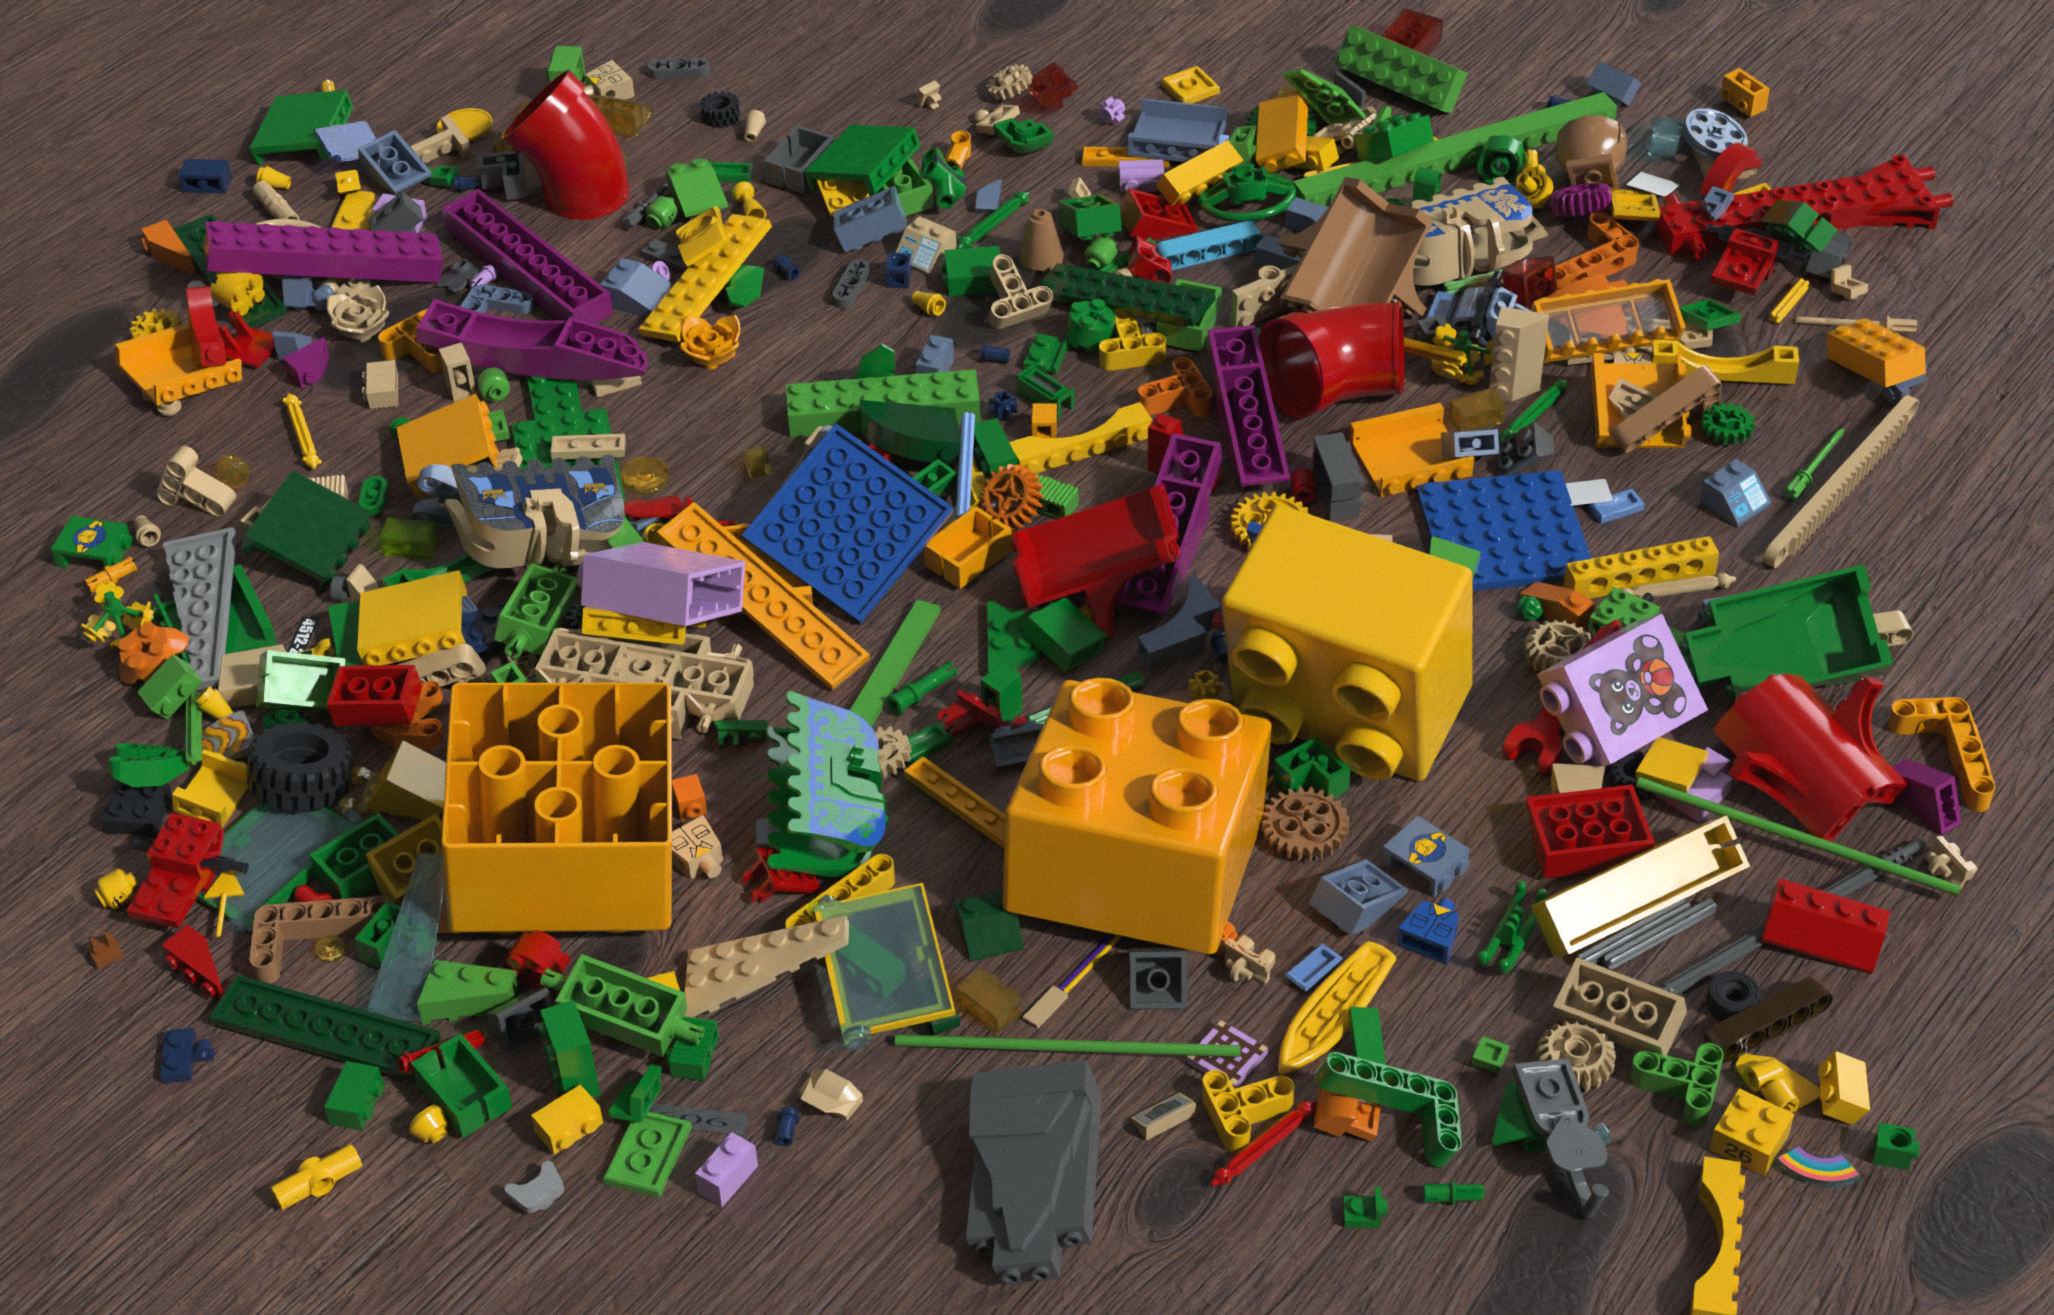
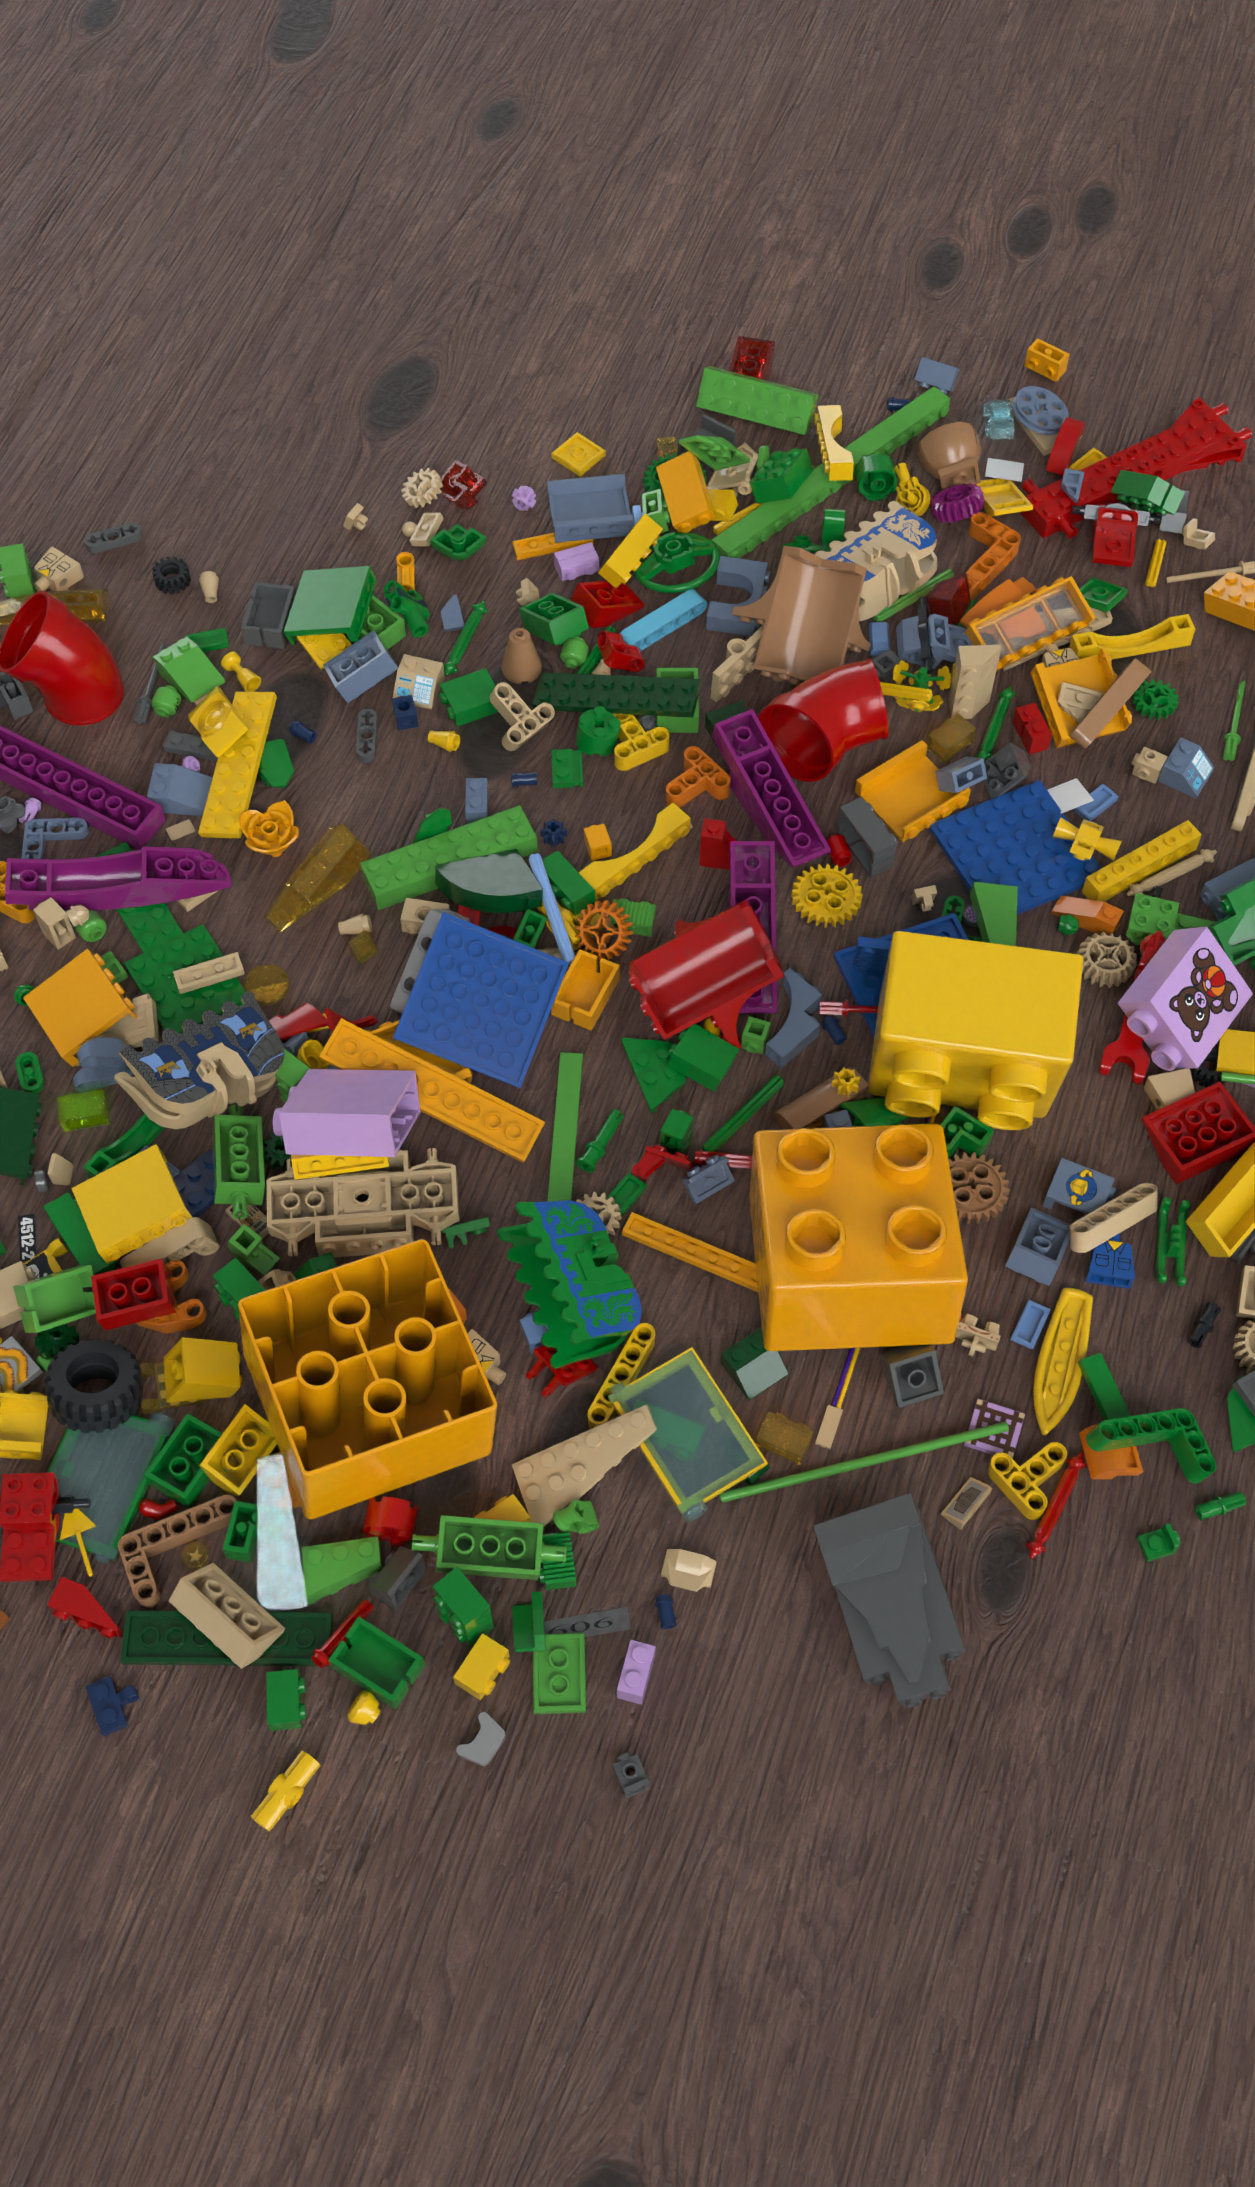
camera: 20 degrees left, 15 degrees up
(330, 999) = (226, 1614): none -> tan slope
(481, 366) = (78, 915): none -> tan plate
(625, 325) = (180, 829): none -> tan sticker
(676, 1264) = (630, 1784): none -> dark grey brick
(731, 1011) = (576, 1517): none -> bright green piece
(741, 392) = (318, 877): none -> clear yellow wedge
(759, 439) = (355, 925): none -> tan cone
(1043, 389) = (582, 807): green window -> none
(1128, 626) = (755, 1035): none -> bright green brick
(1450, 883) = (1113, 1217): none -> tan beam
(1458, 129) = (837, 460): none -> yellow arch
(1490, 1054) = (1200, 1367): bright green plate -> none
(1513, 1016) = (1204, 1325): none -> black pin
(1572, 420) = (1036, 733): none -> red piece
(1582, 527) = (1086, 839): none -> yellow brick
(1689, 479) = (1148, 764): none -> tan brick

